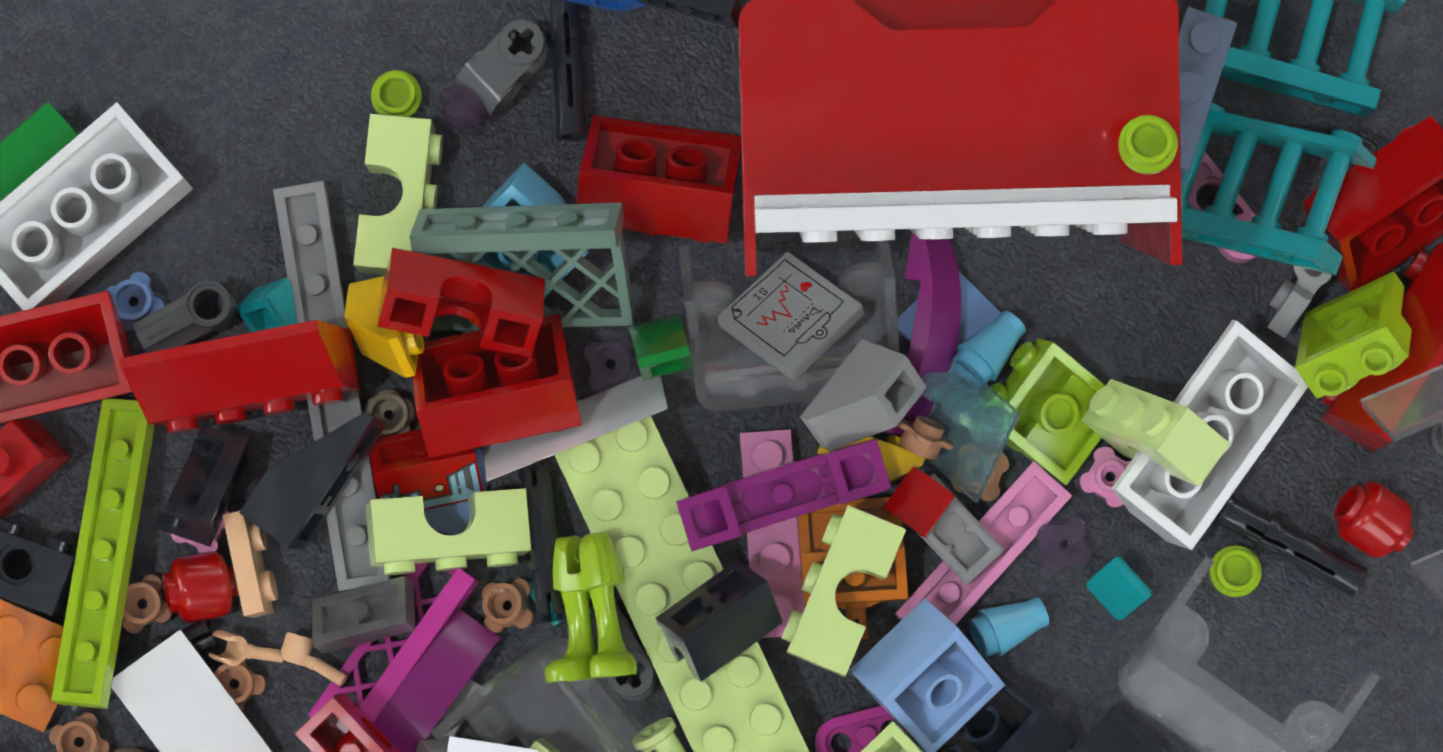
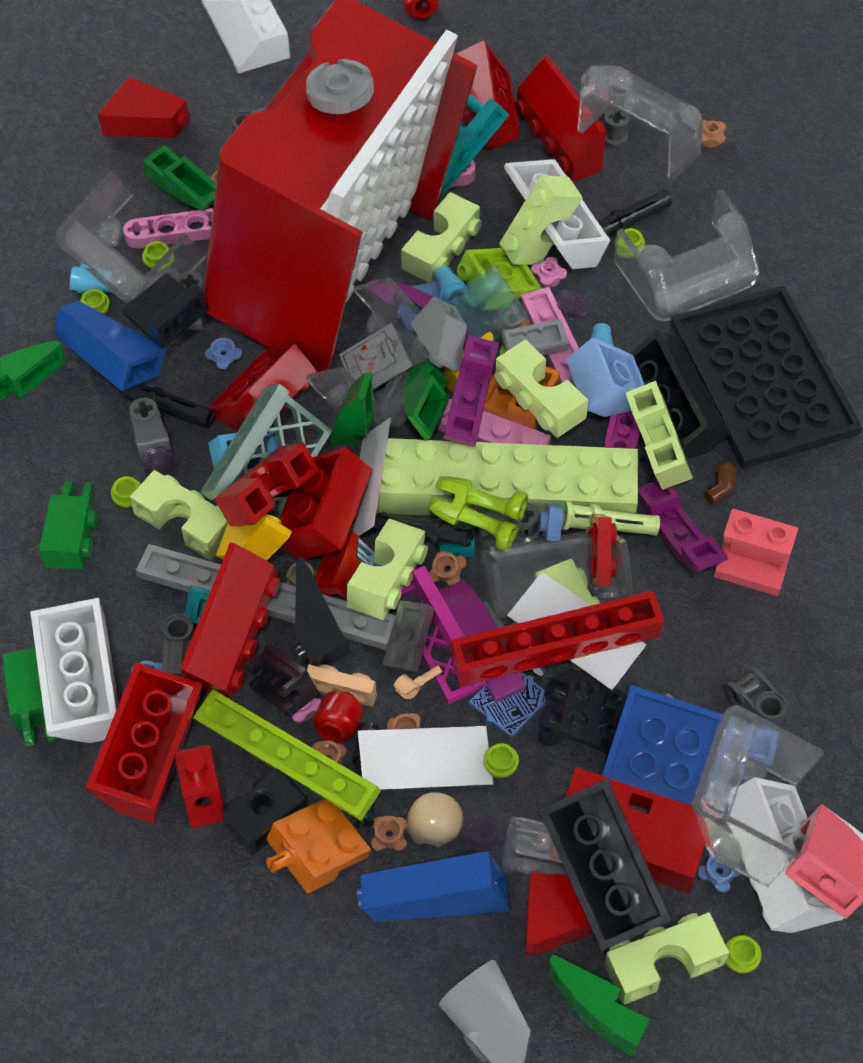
camera: 65 degrees left, 25 degrees down
(239, 650) = (387, 713): light nougat hand -> none
(296, 56) = (69, 528): none -> green hinge
(635, 718) = (551, 522): none -> medium blue plate
(695, 70) = (223, 346): none -> medium blue plate
(720, 619) = (521, 445): black hinge -> none
(744, 429) = (425, 397): none -> green slope
(919, 501) = (513, 333): red slope -> none
(924, 437) = (479, 326): nougat plate -> none
(965, 105) = (340, 86): none -> light grey tile
(1036, 287) = (456, 222): none -> yellowish green arch
(1118, 588) = (609, 290): teal slope -> none
(1148, 144) = (411, 23): lime plate -> none
(1294, 297) = (506, 149): light grey plate -> none
(1354, 337) = (543, 130): lime plate -> none
(1374, 519) = (638, 175): red head -> none

